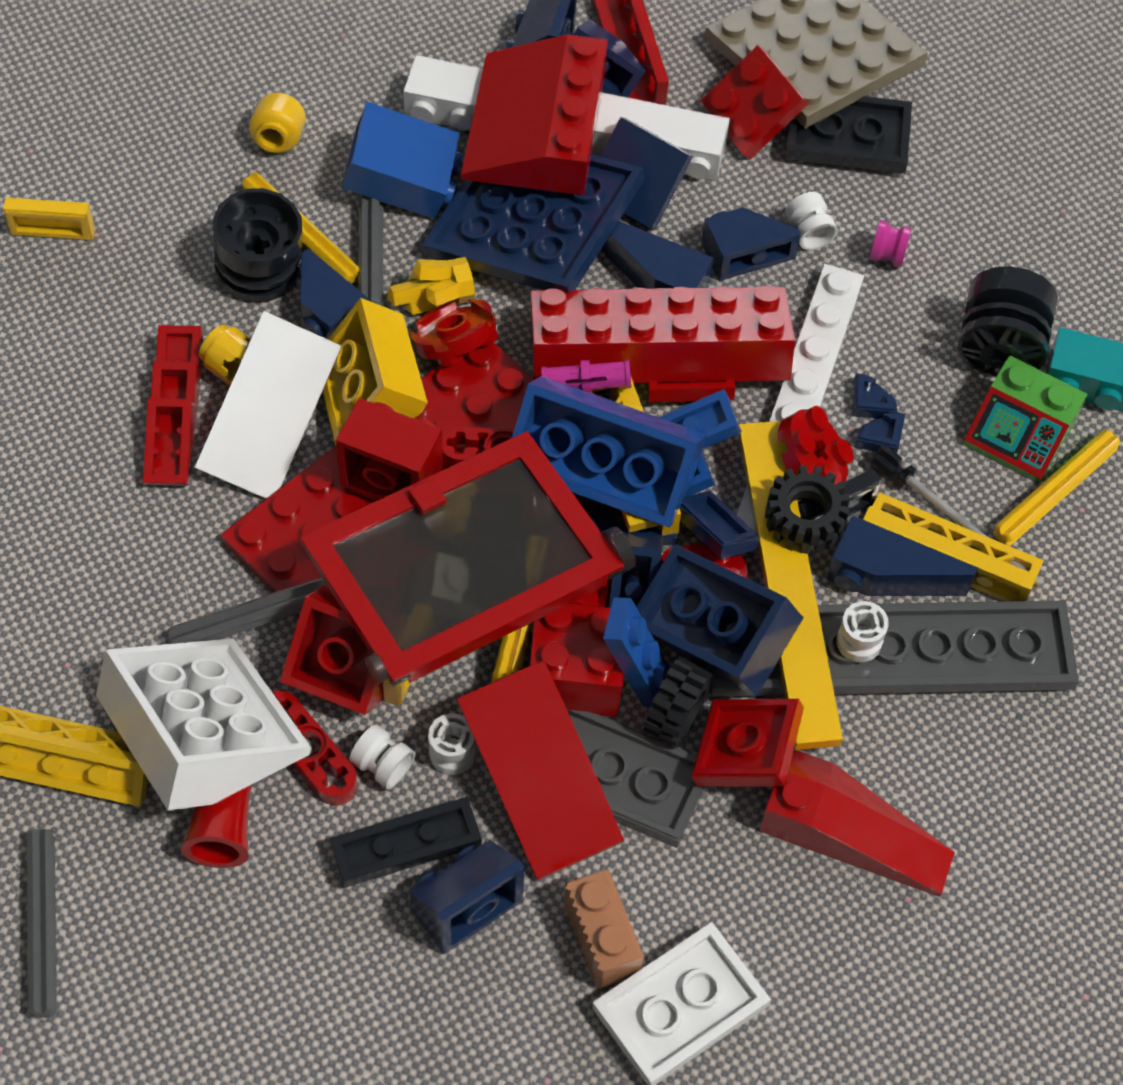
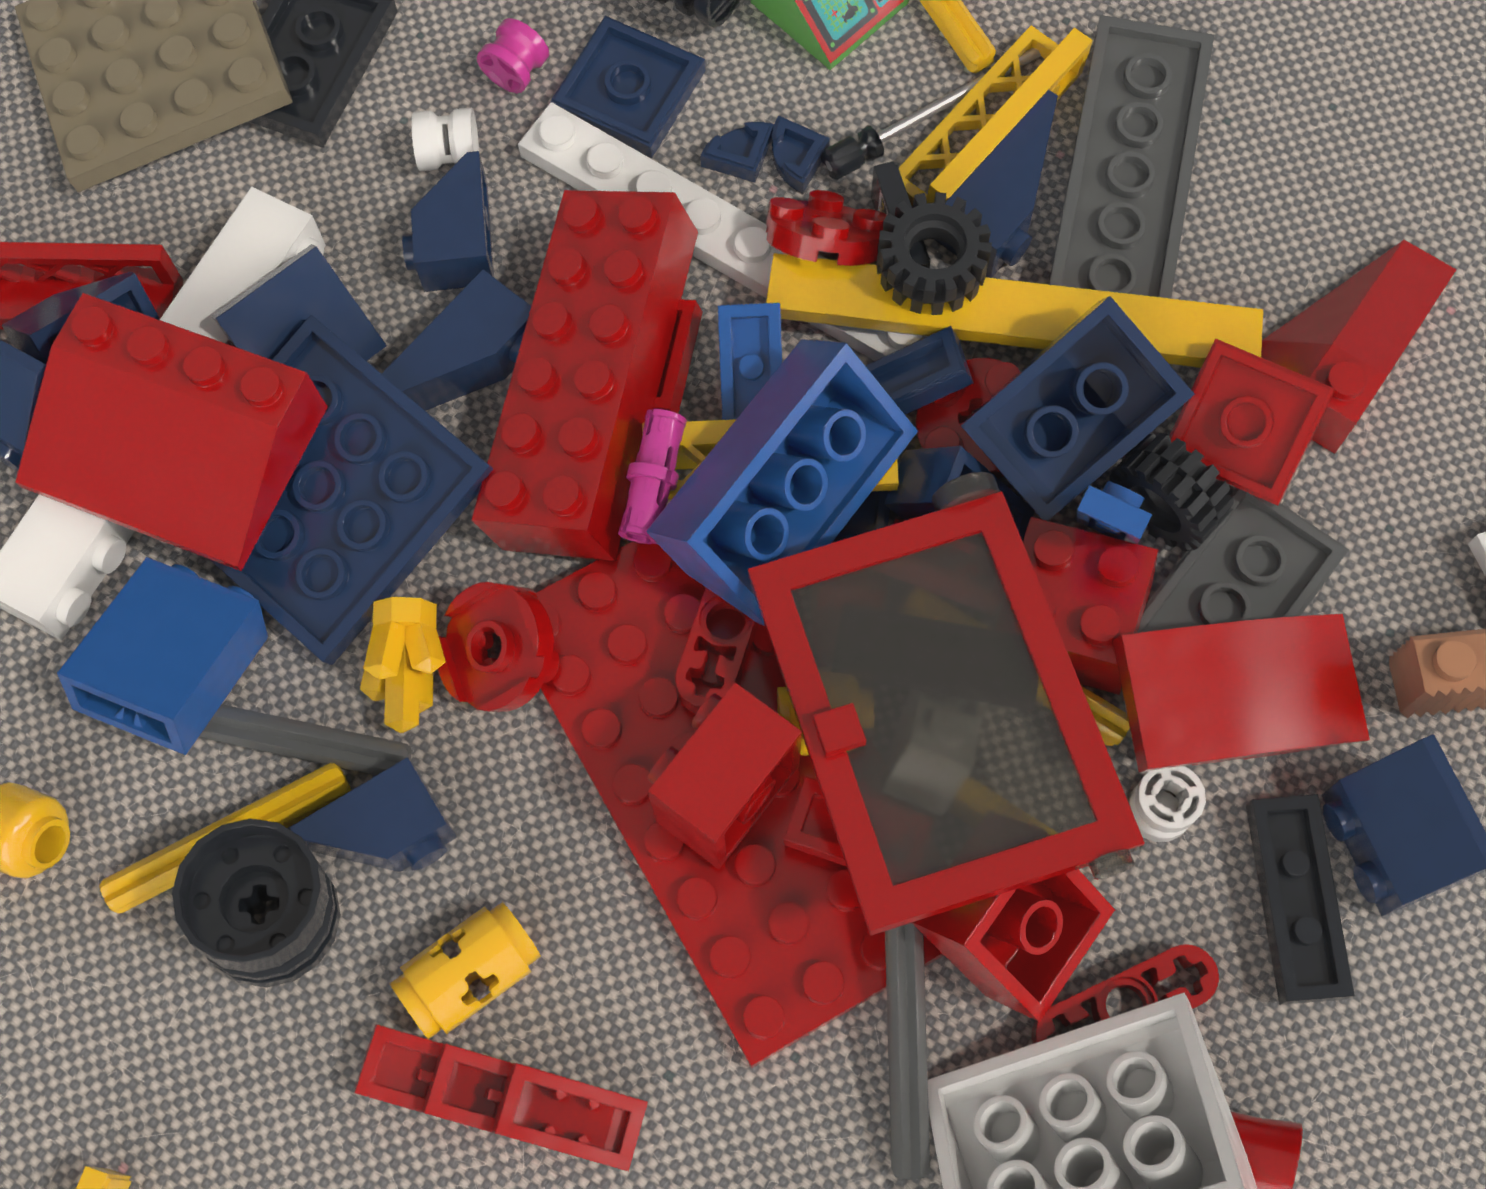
camera: 70 degrees left, 10 degrees up
(268, 406) = (557, 947): white piece -> none
(373, 365) = (547, 784): yellow slope -> none
(382, 756) = (1168, 902): white wheel -> none
(756, 100) = (223, 147): red plate -> none
(863, 641) = (1118, 243): white wheel -> none
(898, 321) = (630, 85): none -> dark blue tile

